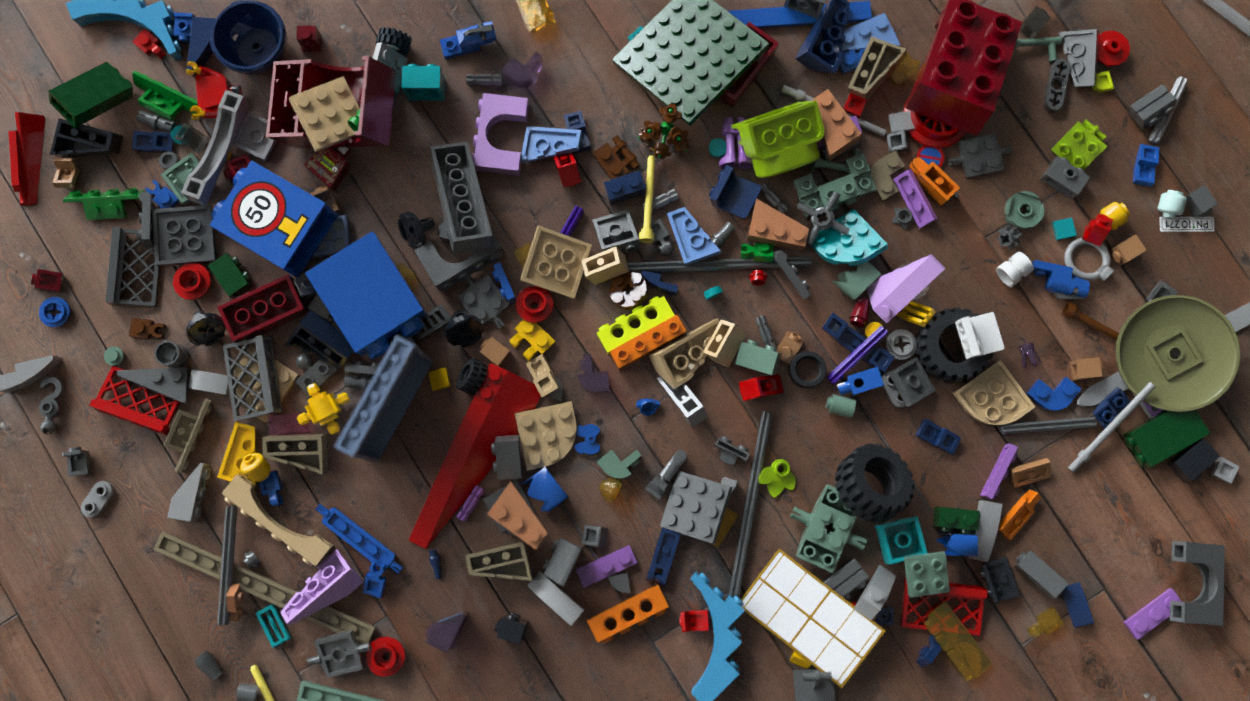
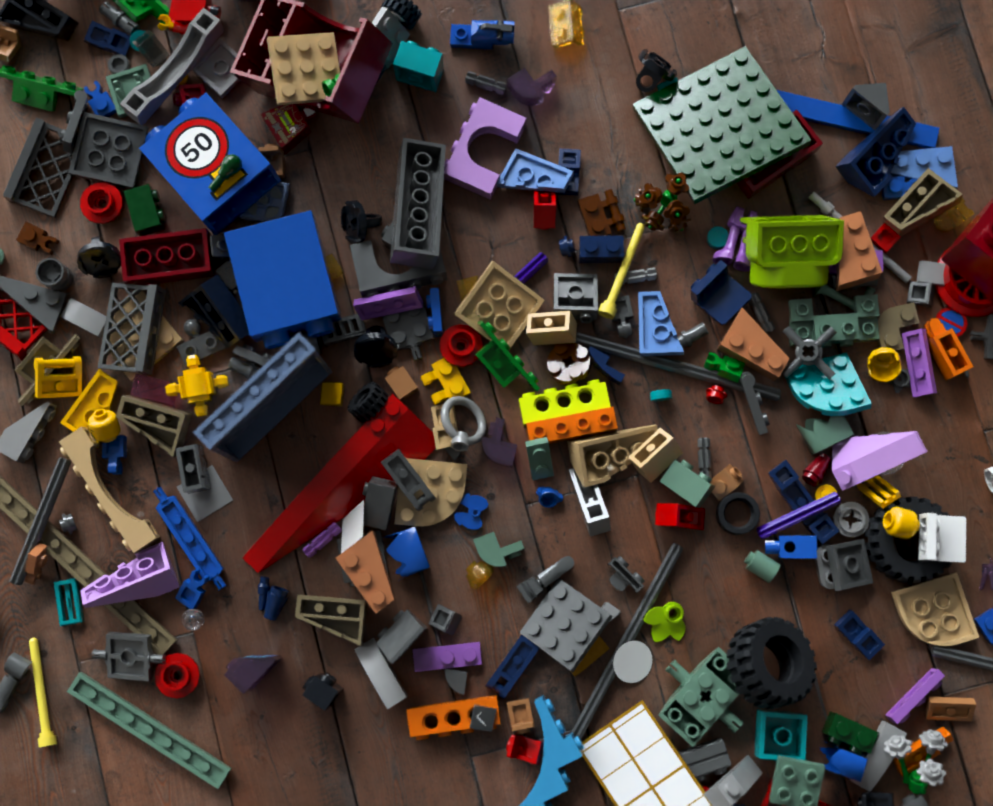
camera: 20 degrees right, 0 degrees up
(206, 445) = (58, 384): none -> yellow plate
(291, 216) = (230, 166): none -> dark green piece
(342, 479) = (192, 468): none -> dark grey brick
(359, 497) = (206, 502): none -> light grey sticker
(383, 605) = (192, 619): none -> clear plate
(448, 568) = (275, 602): none -> dark blue cone
(462, 288) = (388, 303): none -> medium lavender plate
(493, 484) = (352, 527): none -> white sticker
(526, 429) = (407, 479): none -> dark grey plate
(559, 382) = (460, 439): none -> light grey piece
(572, 307) = (500, 361): none -> green bracket
(596, 194) = (567, 246): none -> dark blue plate
(620, 23) = (656, 68): none -> black tile
(630, 377) = (539, 458): none -> sand green plate
(652, 606) = (483, 718): none -> dark grey slope
(683, 594) = (520, 715): none -> medium nougat bracket
(760, 519) = (632, 661): none -> white sticker
(887, 209) = (884, 364): none -> yellow hair
(942, 333) = (901, 523): none -> yellow head
(1030, 528) = (929, 772): none -> light grey plant

